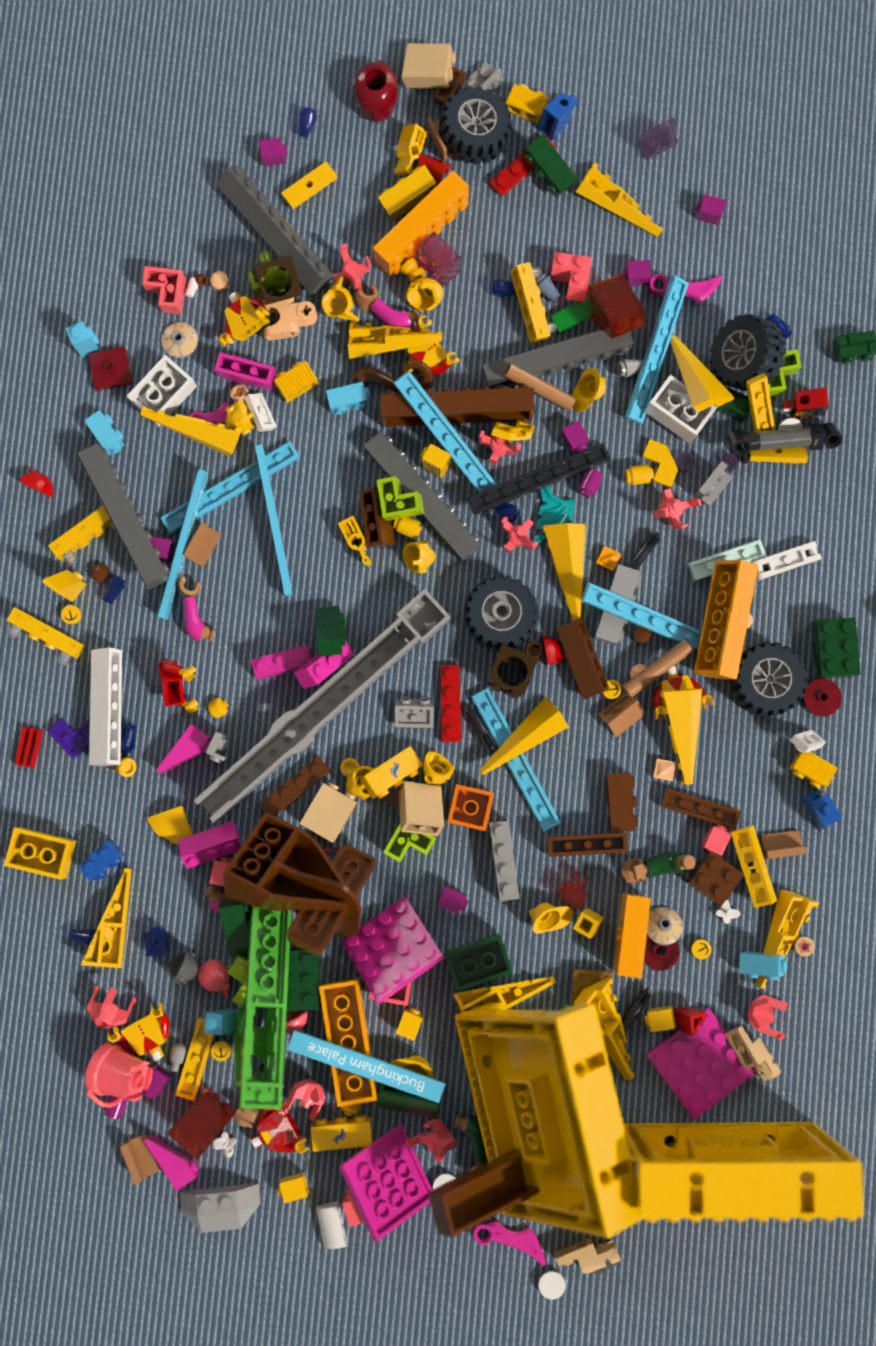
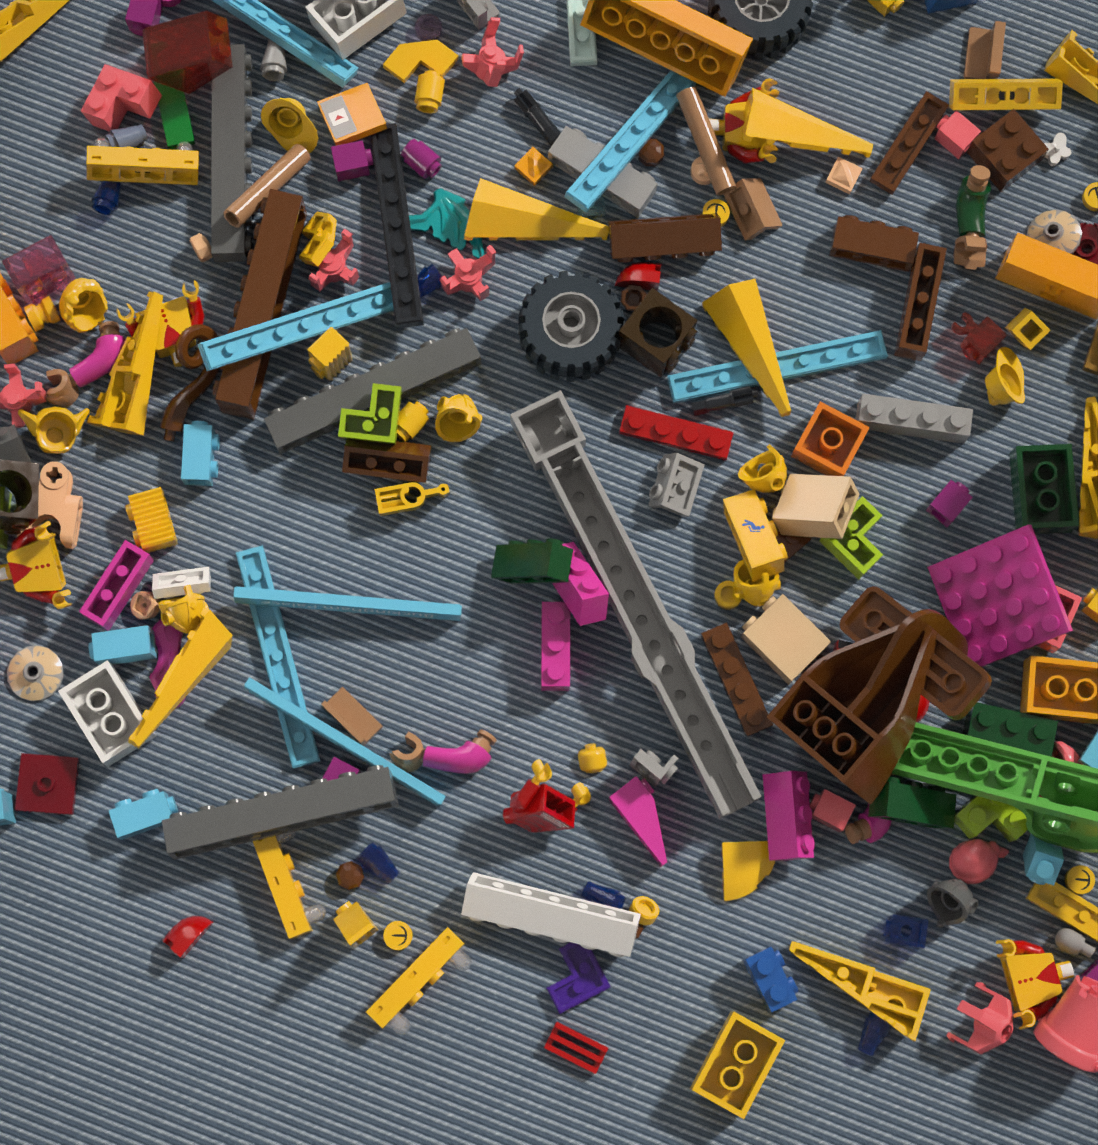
camera: 80 degrees left, 5 degrees down
(208, 387) = (123, 645): none -> medium azure brick
(487, 357) = (201, 247): none -> light nougat tile
(607, 428) = (352, 115): none -> light orange tile

